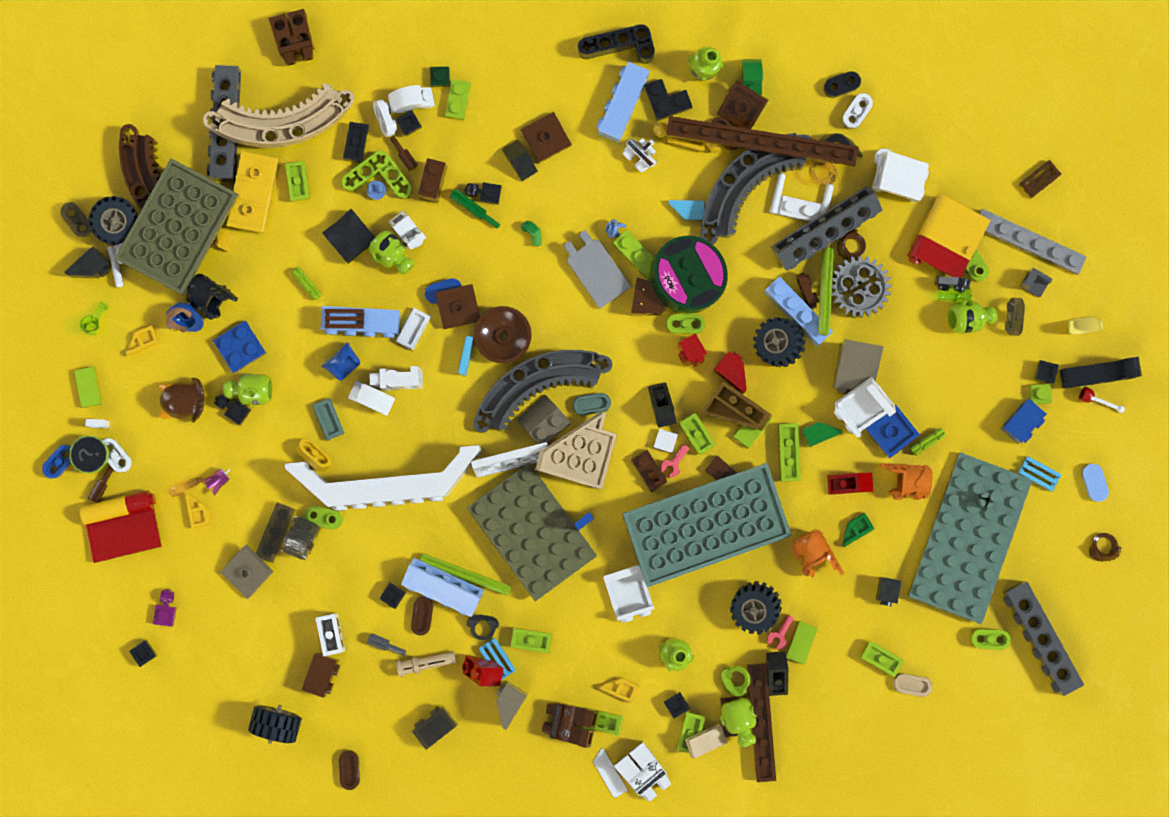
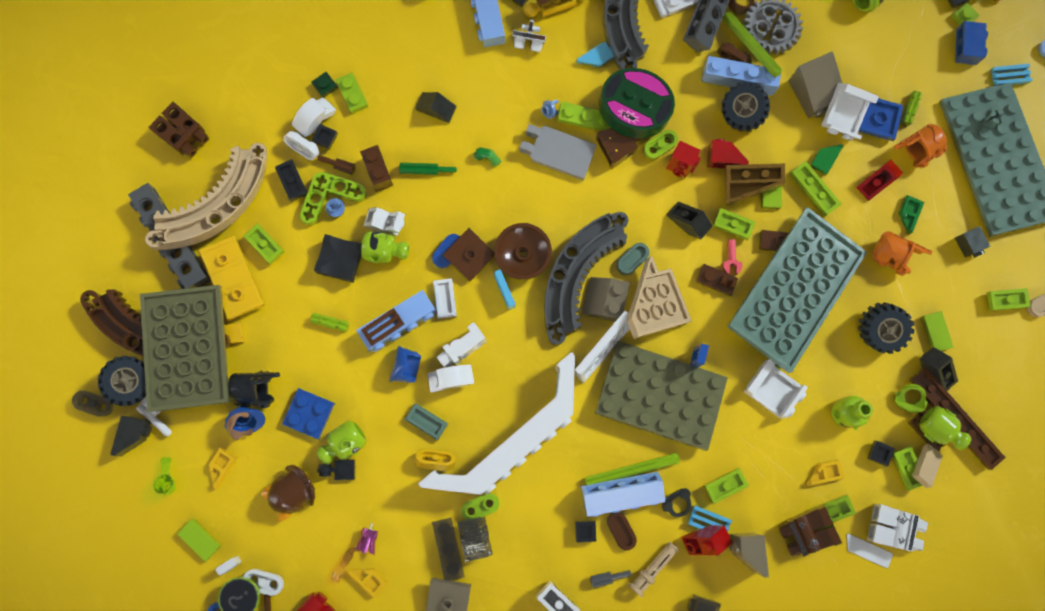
camera: 45 degrees left, 5 degrees down
(489, 193) = (429, 148): black plate -> none
(546, 137) = (444, 75): reddish brown plate -> none
(665, 440) = (712, 247): white tile -> none
(780, 633) = (916, 338): coral bar -> none

